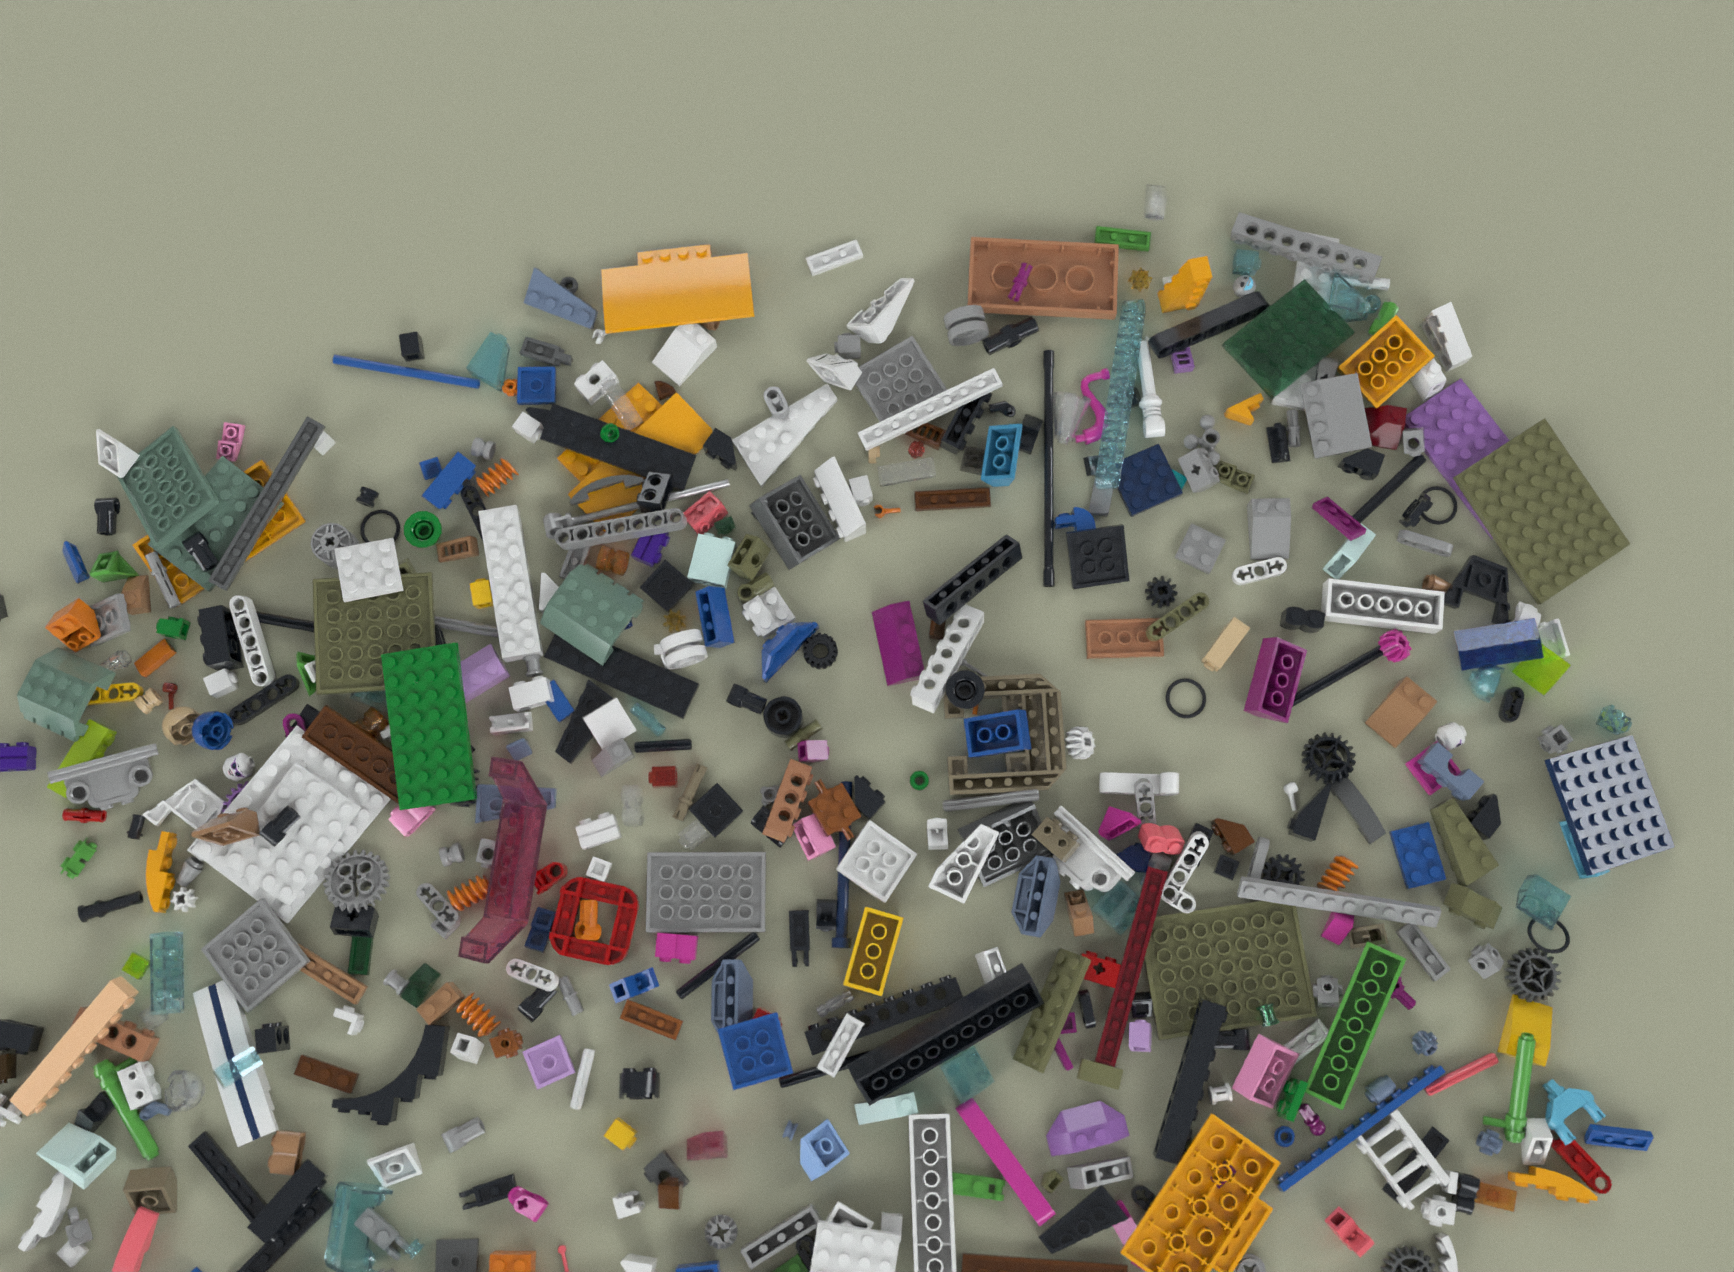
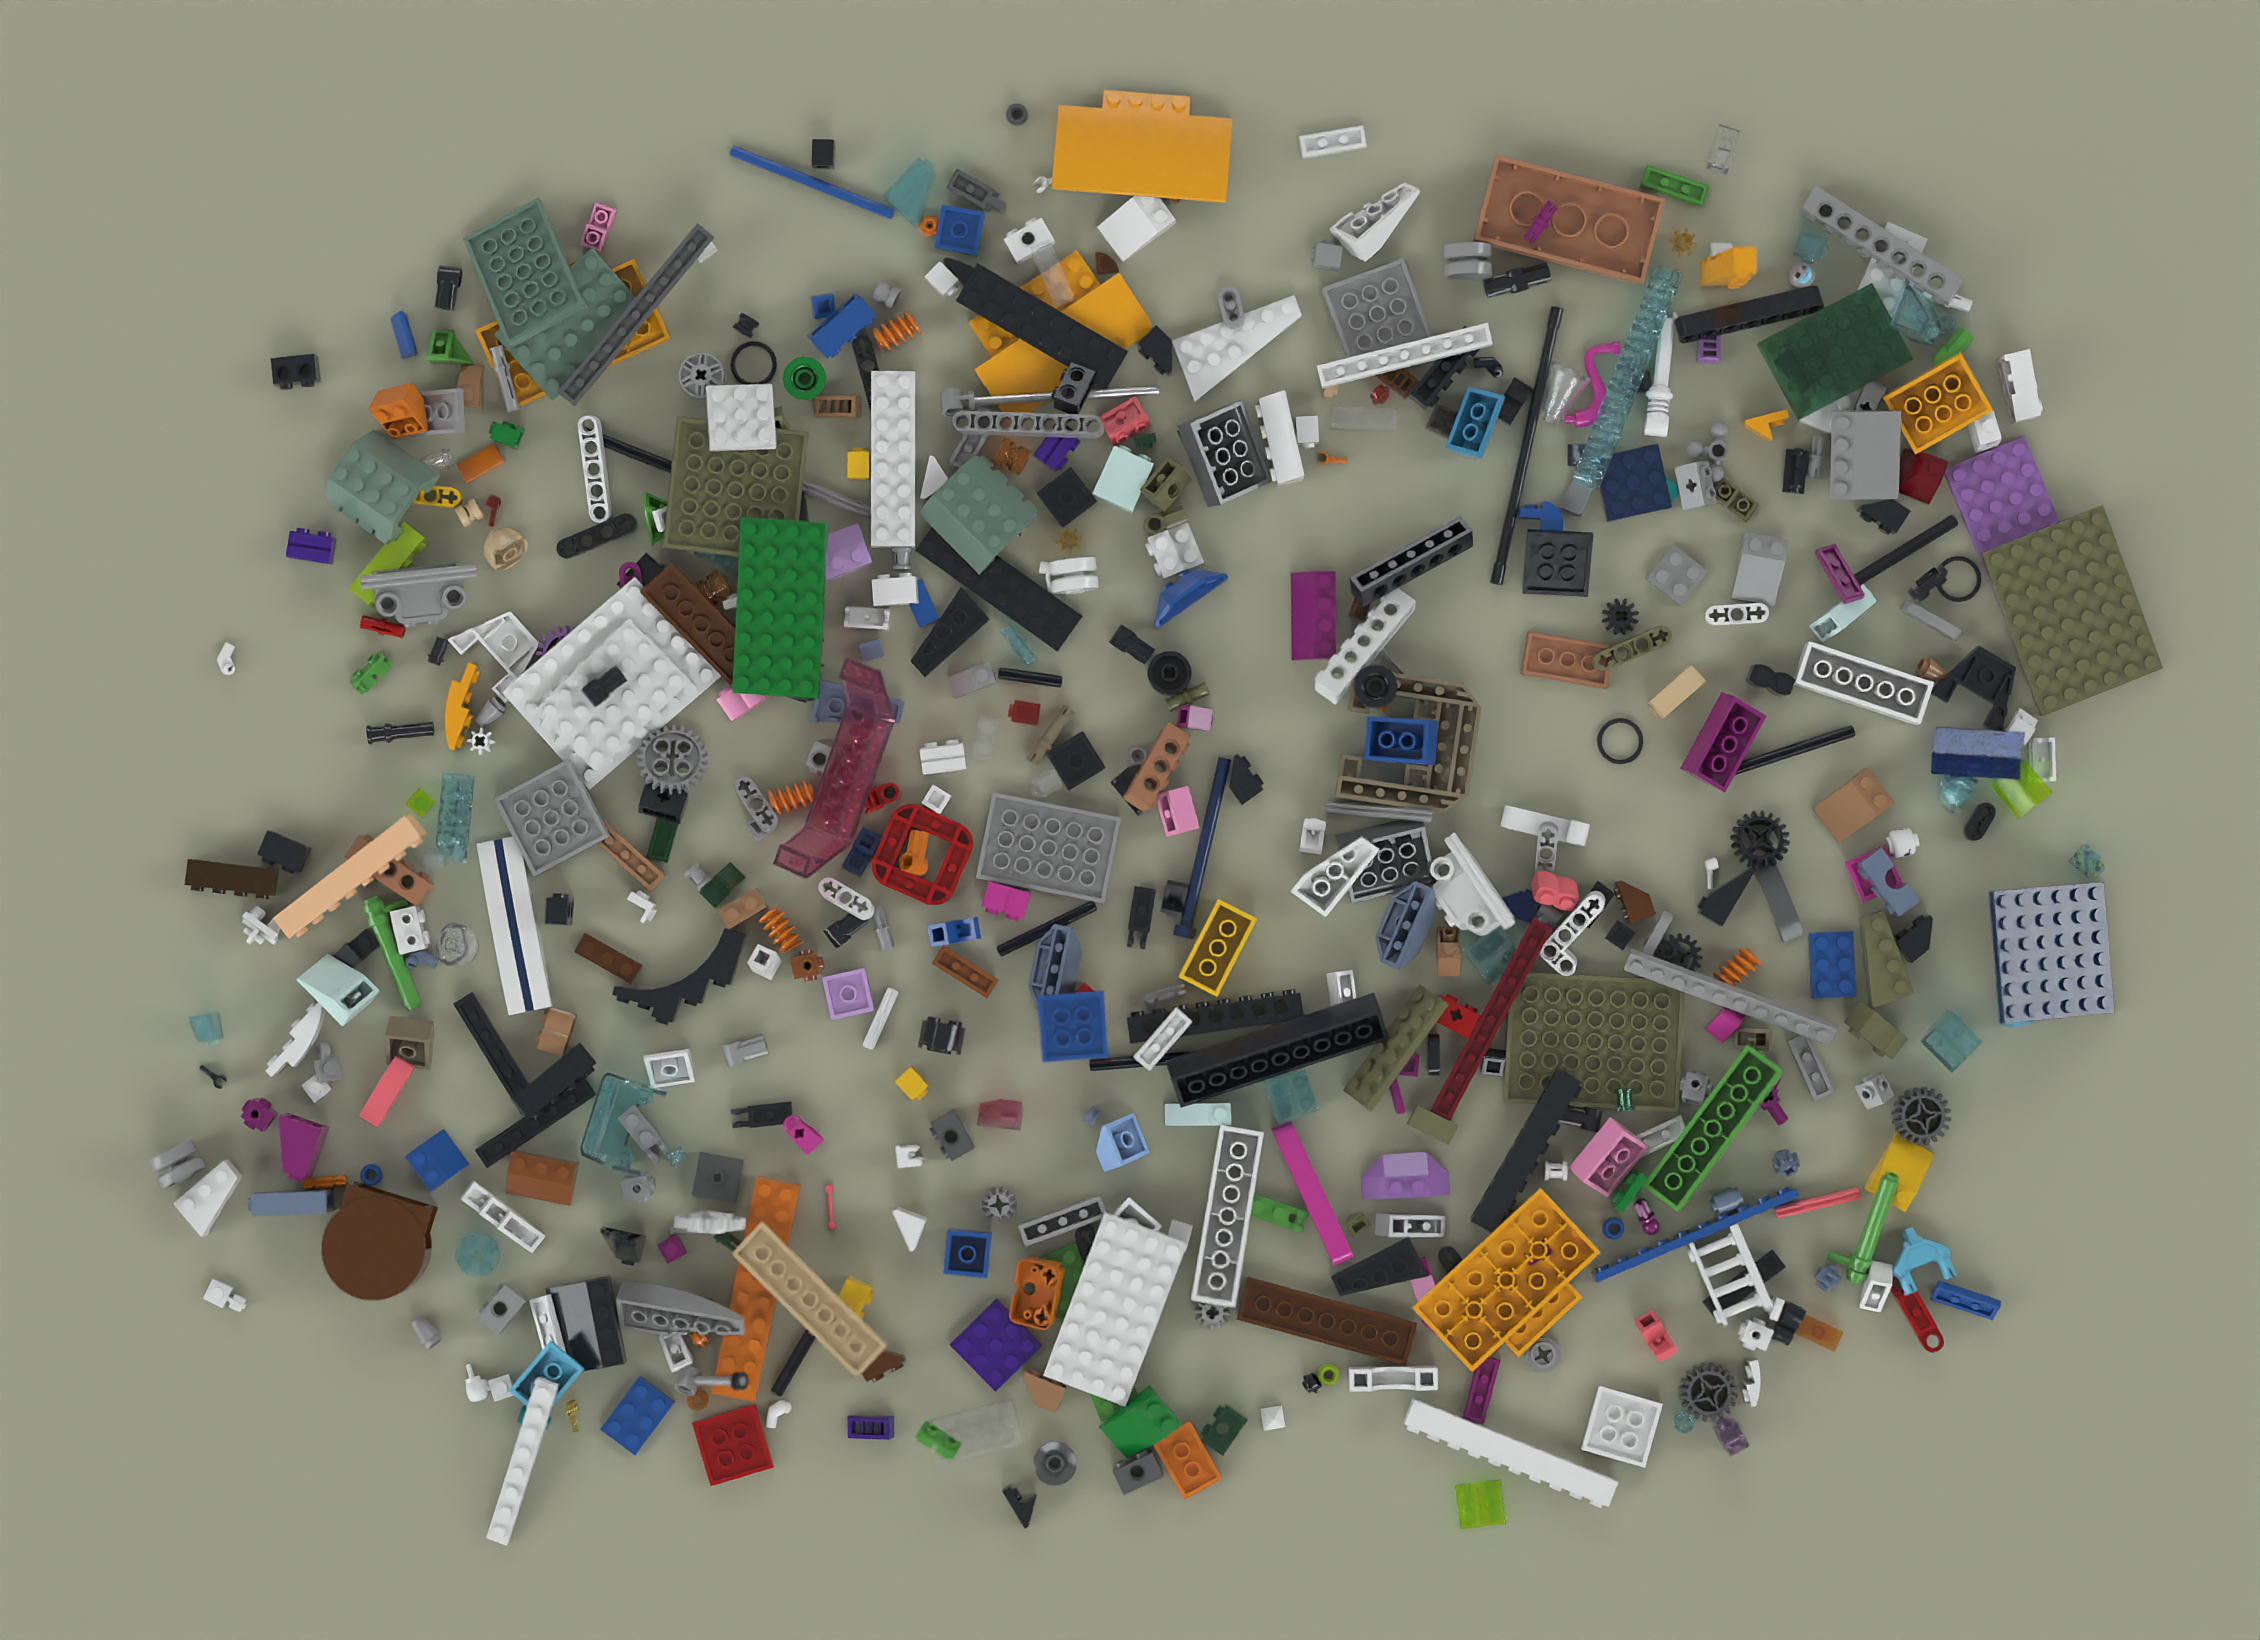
camera: 10 degrees right, 10 degrees up
(114, 454) = (466, 218): white slope -> none
(199, 548) = (552, 352): black piece -> none
(212, 730) = (537, 561): blue cylinder -> none
(219, 638) = (560, 459): black brick -> none
(221, 683) = (552, 508): white brick -> none
(229, 827) = (553, 678): medium nougat slope -> none
(237, 1067) = (521, 933): clear light blue slope -> none
(238, 767) = (560, 607): white head -> none
(451, 854) = (778, 751): light grey wheel -> none
(553, 298) = (997, 129): sand blue wing -> none
(609, 432) = (1036, 311): green plate -> none
(609, 723) = (976, 642): white tile -> none
(628, 481) = (991, 375): dark grey slope -> none
(670, 1193) = (956, 1153): reddish brown slope -> none
(714, 617) = (1114, 545): blue brick -> none
(820, 662) = (1215, 616): black tyre -> none
(834, 809) = (1205, 787): dark orange plate -> none
(836, 370) = (1307, 283): white slope -> none
(876, 861) = (1240, 852): white plate -> none
(921, 774) = (1312, 773): green plate -> none
(952, 499) = (1409, 460): reddish brown tile -> none
(1056, 839) = (1440, 869): dark tan brick -> none
(1080, 743) = (1490, 768): white gear -> none
(1116, 823) = (1511, 864): dark pink slope -> none
(1140, 1036) = (1484, 1094): lavender brick -> none
(1394, 645) = (1865, 730): dark pink gear -> none
(1414, 433) = (1952, 492): light grey brick -> none
(1554, 739) = (2022, 869): light grey brick -> none
(1554, 1182) = (1890, 1335): light orange slope -> none
(1565, 946) = (1951, 1096): black tyre -> none

